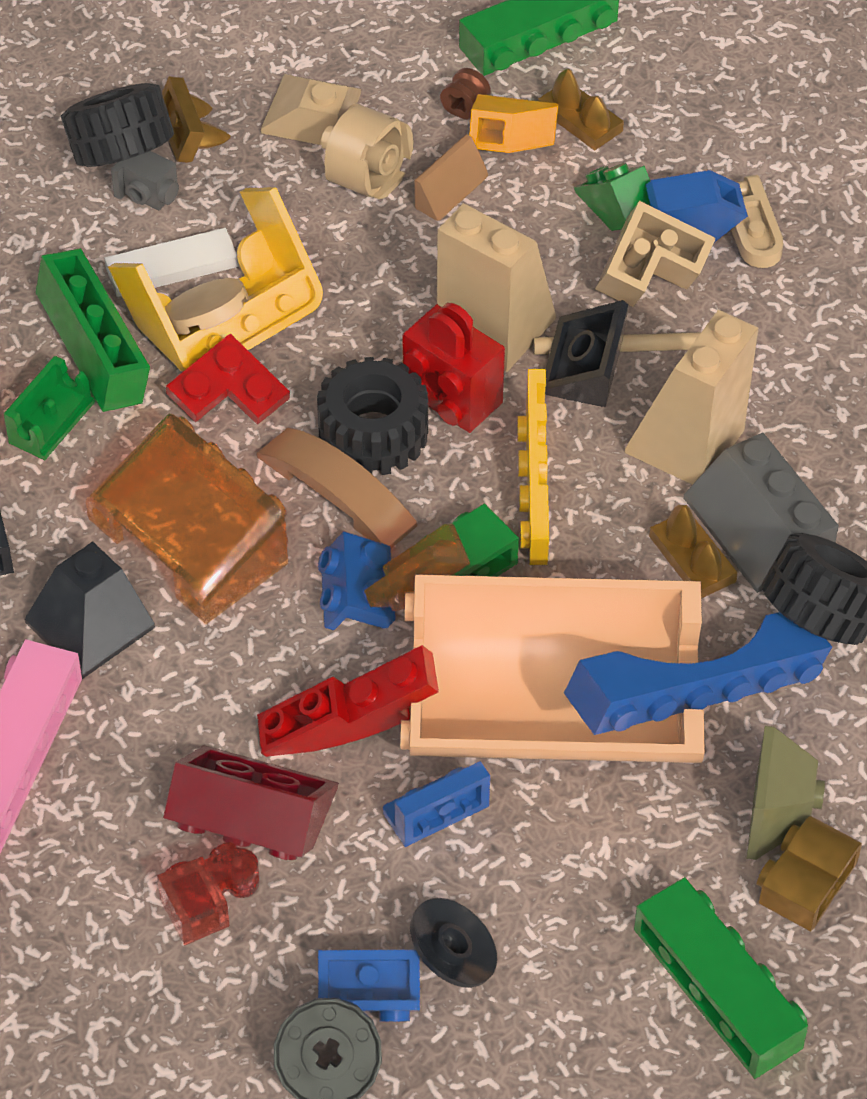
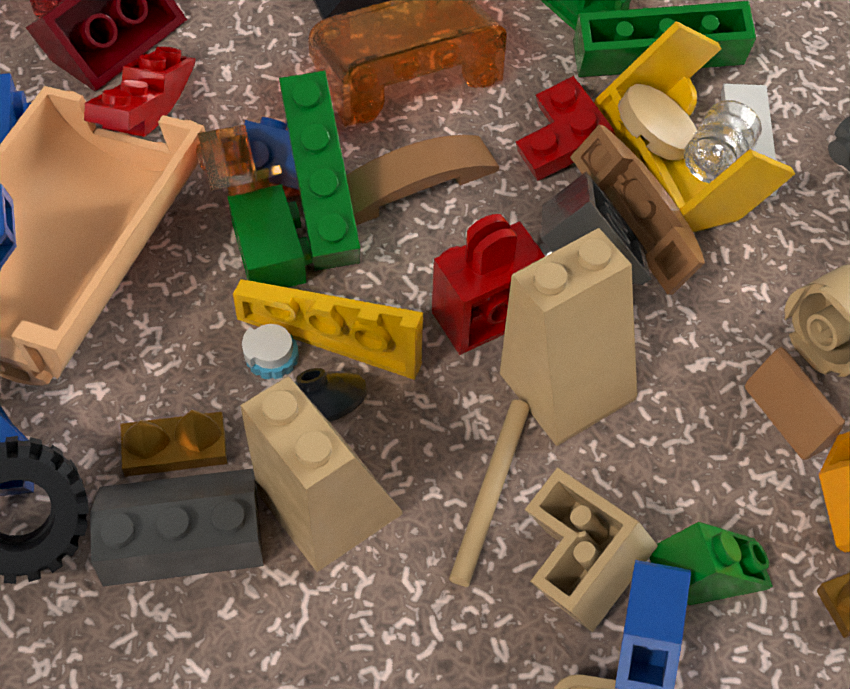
camera: 110 degrees right, 5 degrees up
(217, 251) = (721, 139): none -> clear wheel
(315, 290) = (643, 205): none -> medium nougat slope
(374, 309) = (583, 209): none -> dark grey slope
(380, 389) = (457, 187): black tyre -> none
(387, 513) = (320, 170): none -> green brick
(572, 521) = (270, 351): none -> white piece
(586, 354) = (466, 433): black slope -> none
(623, 472) = (332, 391): none -> black dish

